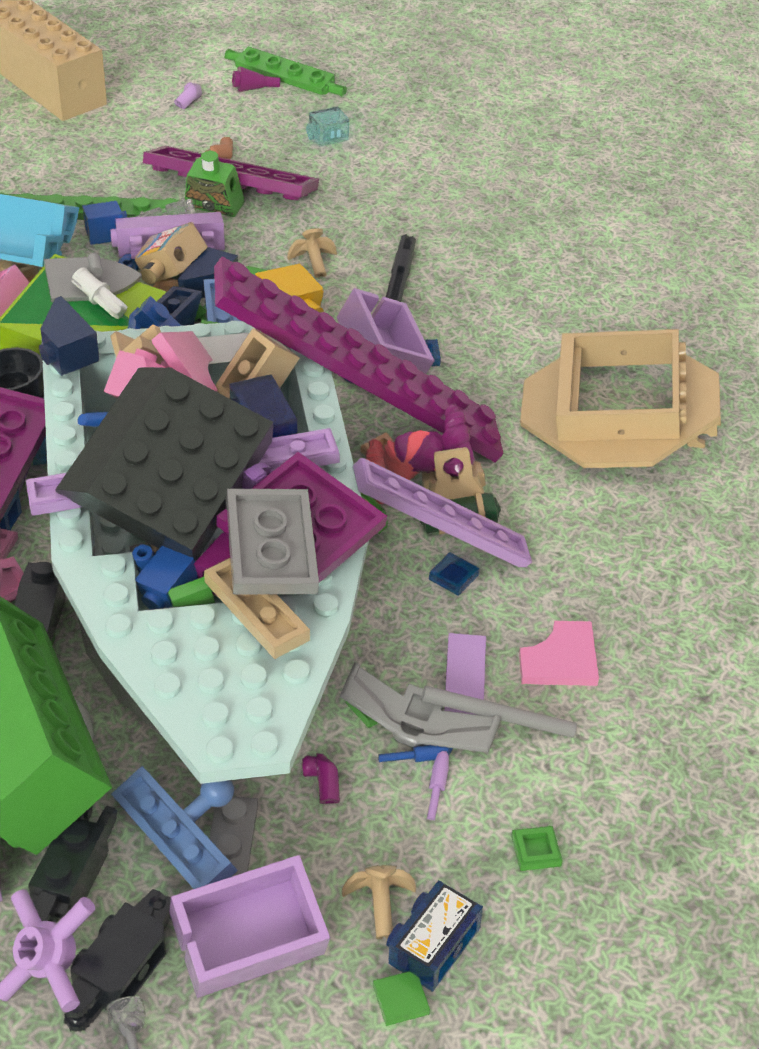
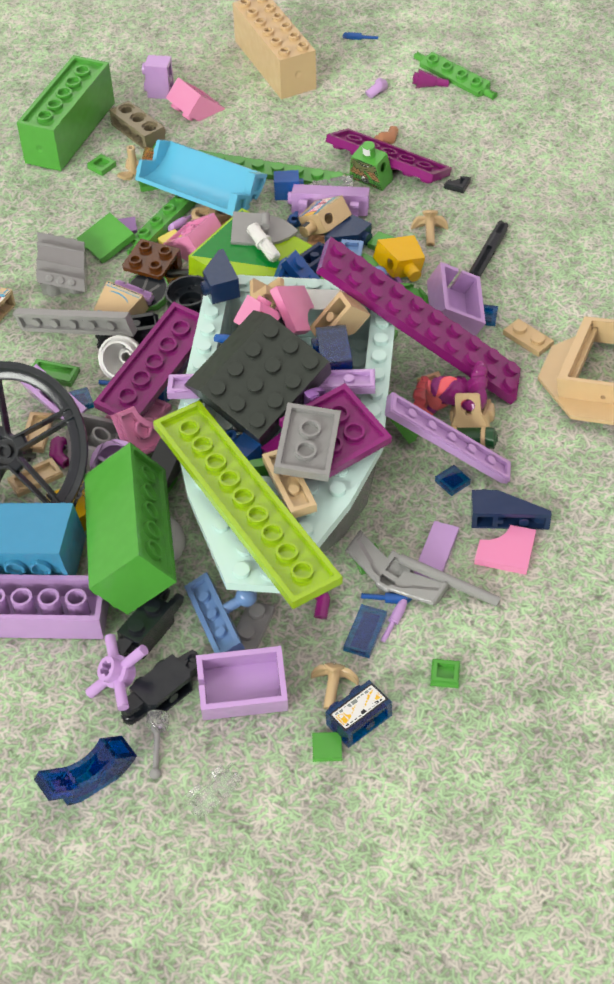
camera: 20 degrees right, 5 degrees up
(143, 38) = (357, 36): none -> blue piece
(205, 649) = (248, 505): none -> lime plate
(328, 126) = (471, 125): clear light blue brick -> none
(333, 199) = (458, 185): none -> black tile
(402, 809) = (365, 631): none -> clear blue tile
(489, 373) = (528, 337): none -> tan plate
(537, 602) = (500, 510): none -> dark blue slope

